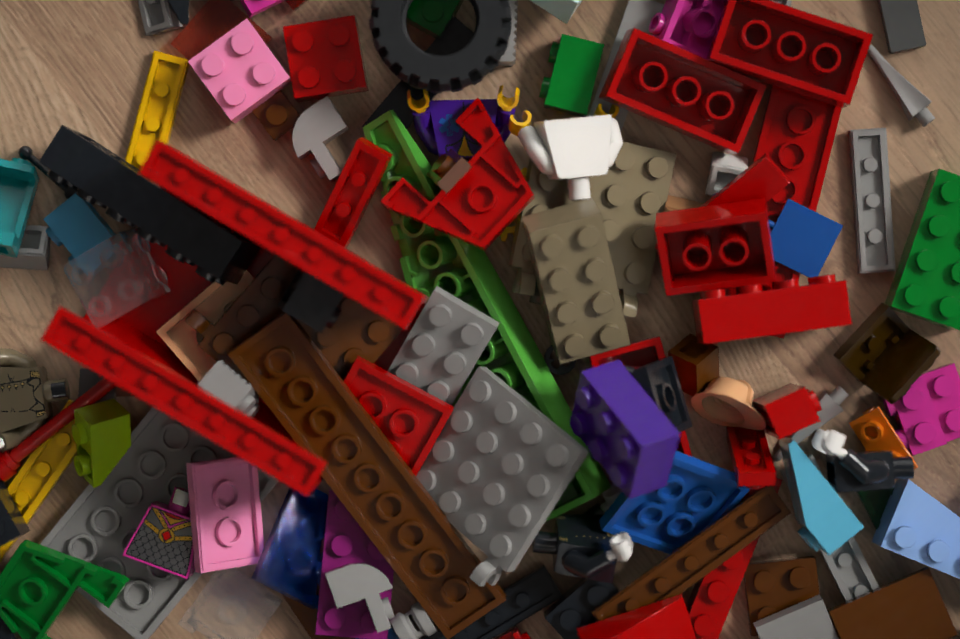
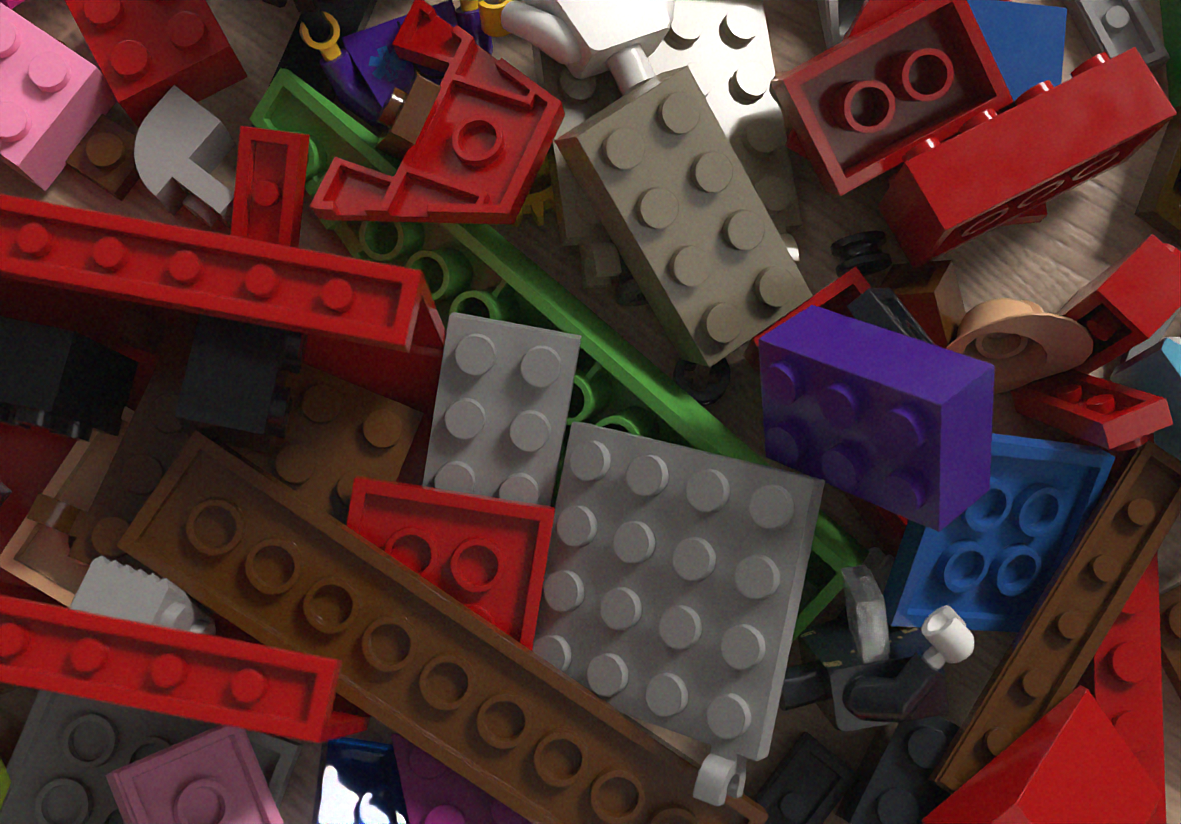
camera: 20 degrees left, 10 degrees down
(589, 520) = (866, 613): none -> clear tile
(672, 323) = (862, 251): none -> black bush

